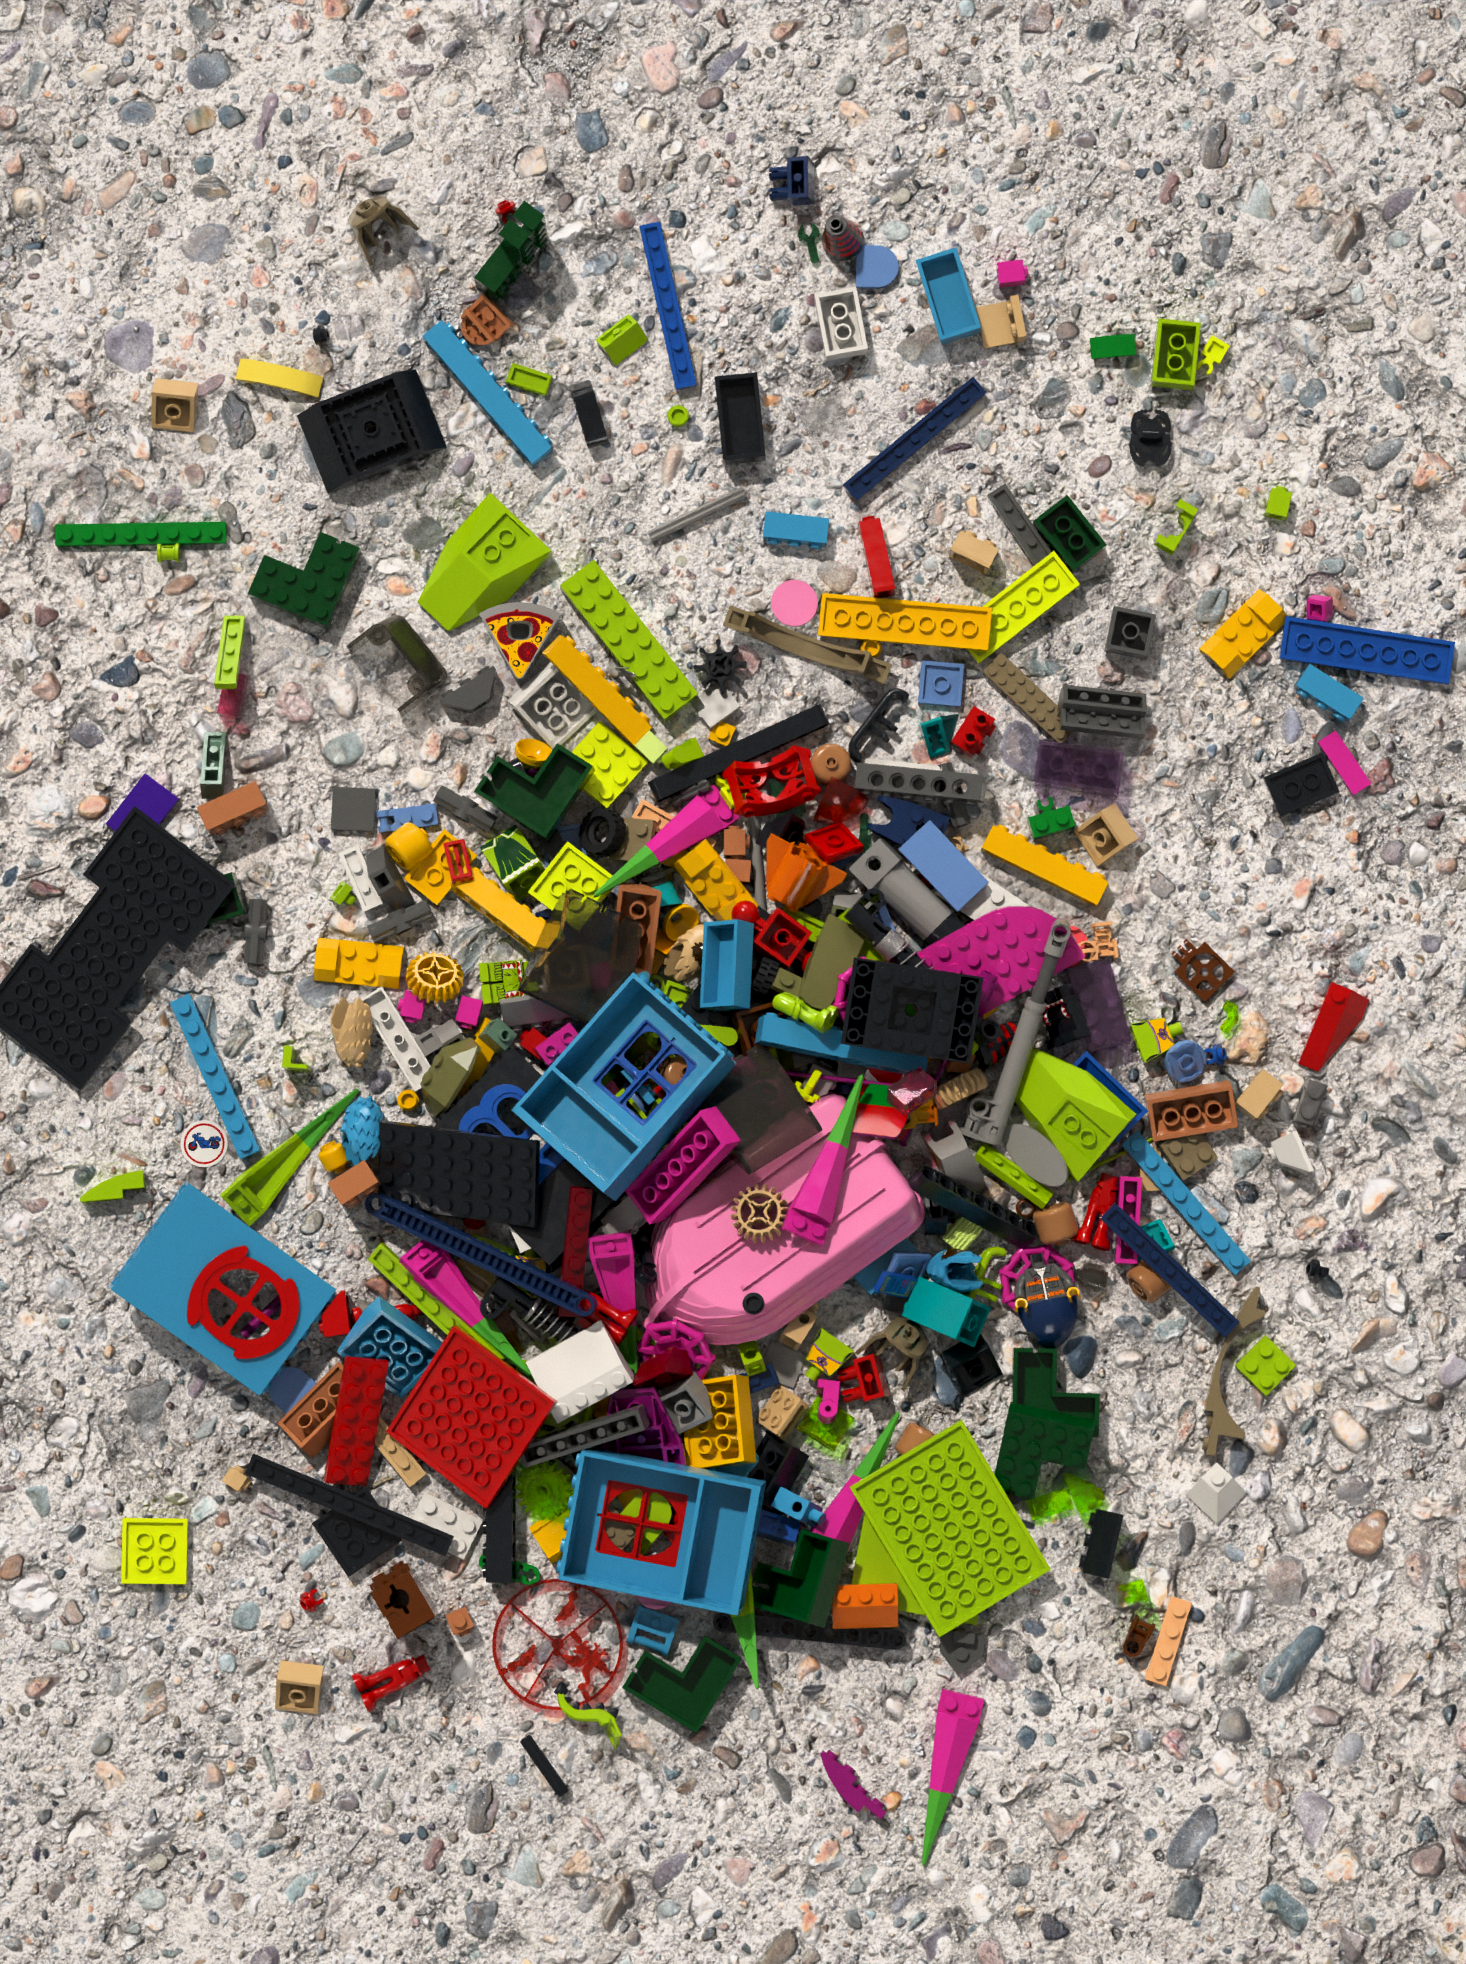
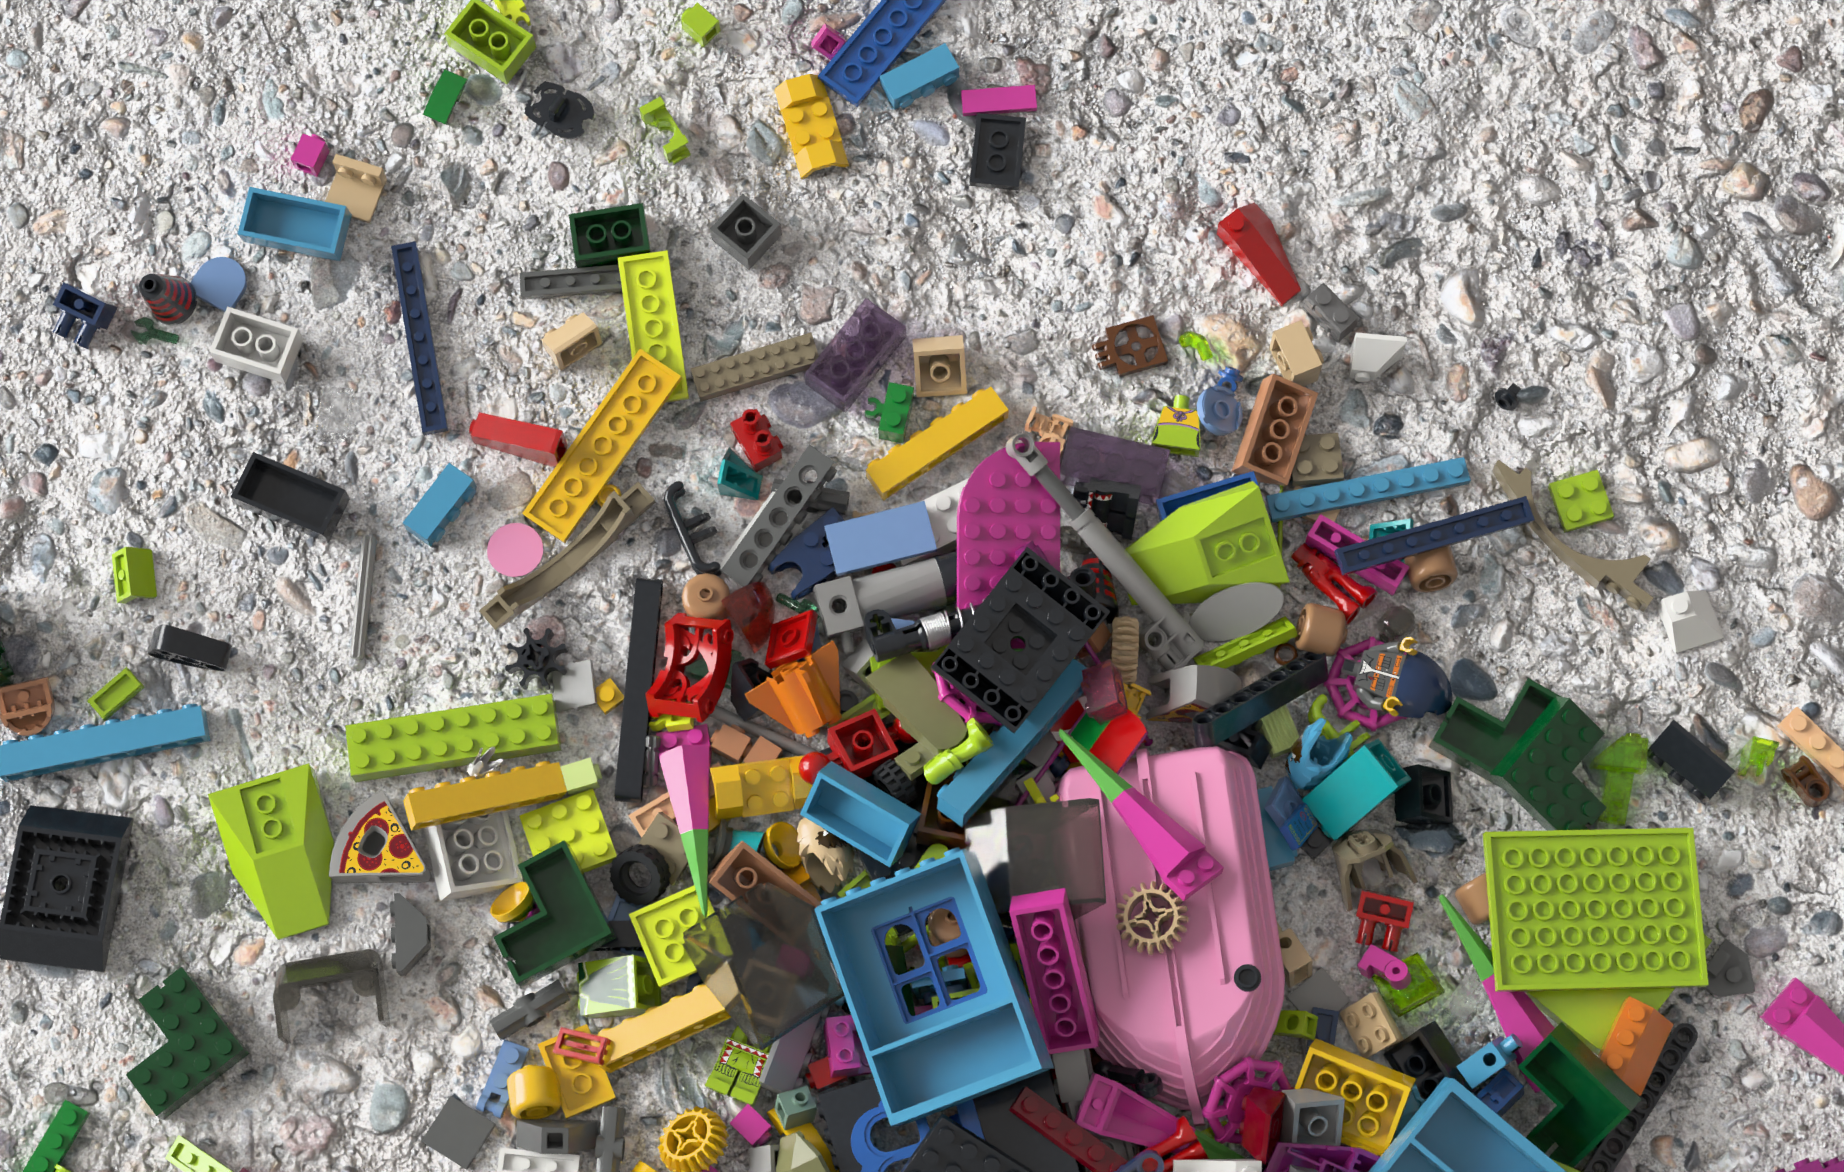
camera: 60 degrees left, 10 degrees down
(667, 306) = (128, 509): blue plate -> none
(678, 416) = (249, 562): lime tile -> none
(682, 754) = (606, 746): lime leg -> none
(826, 1355) = (1334, 944): lime torso -> none
(941, 683) = (687, 447): medium blue tile -> none
(1102, 711) = (810, 299): dark grey brick -> none

